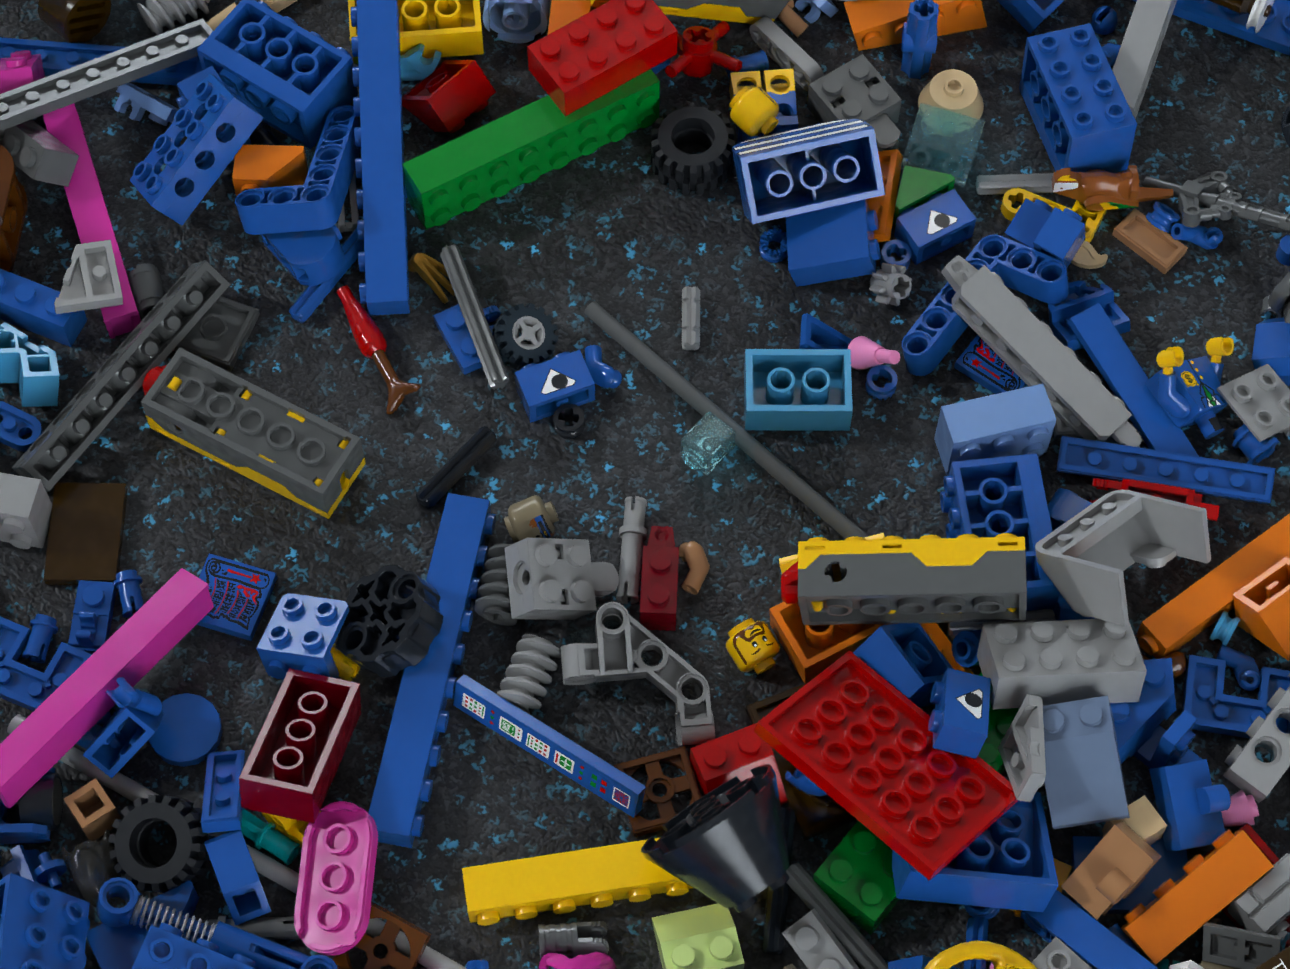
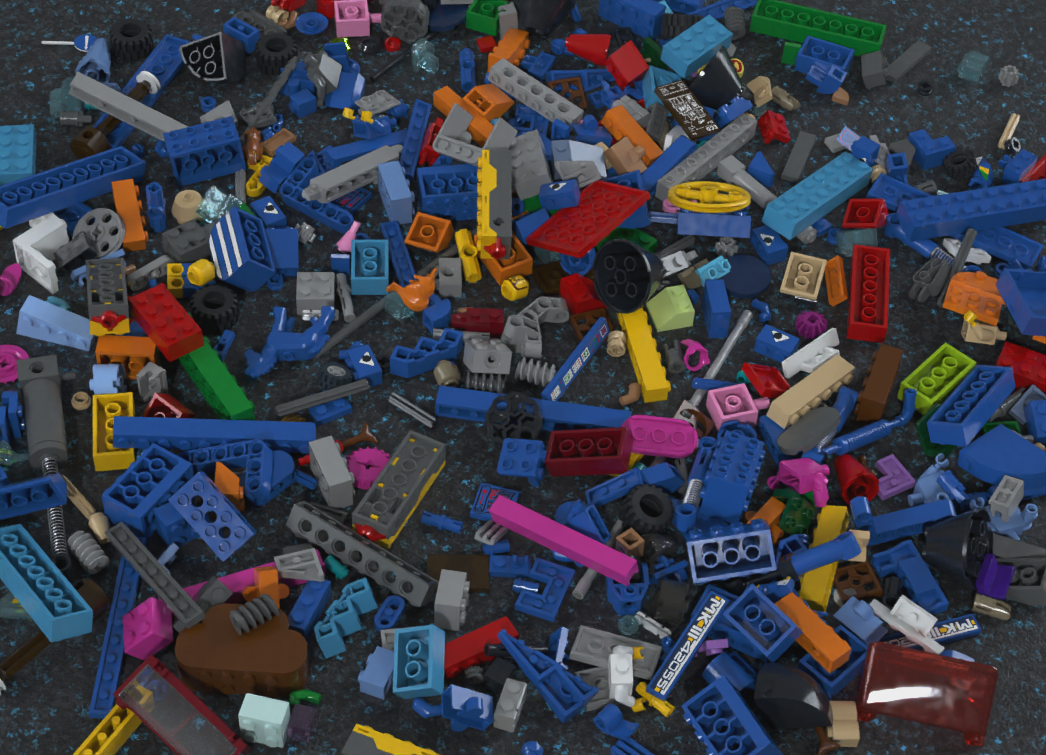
camera: 95 degrees left, 15 degrees down
(51, 238) = (266, 583): none -> orange piece
(111, 343) = (336, 567): none -> teal pin
(150, 563) = (487, 532): none -> light grey tile
(195, 510) = (442, 522): none -> blue pin
(297, 328) = (331, 472): none -> light grey brick
(350, 387) = (359, 461): none -> dark pink gear
(473, 853) = (632, 396): none -> medium nougat arm
(513, 63) = (151, 380): none -> light grey hinge
(575, 484) = (426, 355): none -> blue brick
(603, 253) = (288, 345): none -> blue animal
(603, 828) = (616, 343): none -> tan wheel
(619, 173) = (224, 344): none -> blue bar
(686, 513) = (437, 313): none -> blue brick
(709, 459) = (417, 293): none -> orange piece
(723, 357) = (343, 291): none -> light grey pin
(735, 305) = (315, 290): none -> light grey brick
(765, 542) = (450, 277): none -> light grey brick
(831, 446) = (398, 252): none -> blue tile
(888, 492) = (429, 232): none -> orange slope
(1208, 143) = (221, 111): none -> light grey wing
(1254, 123) = (208, 100): none -> blue bush
(1256, 274) = (302, 103): none -> blue brick

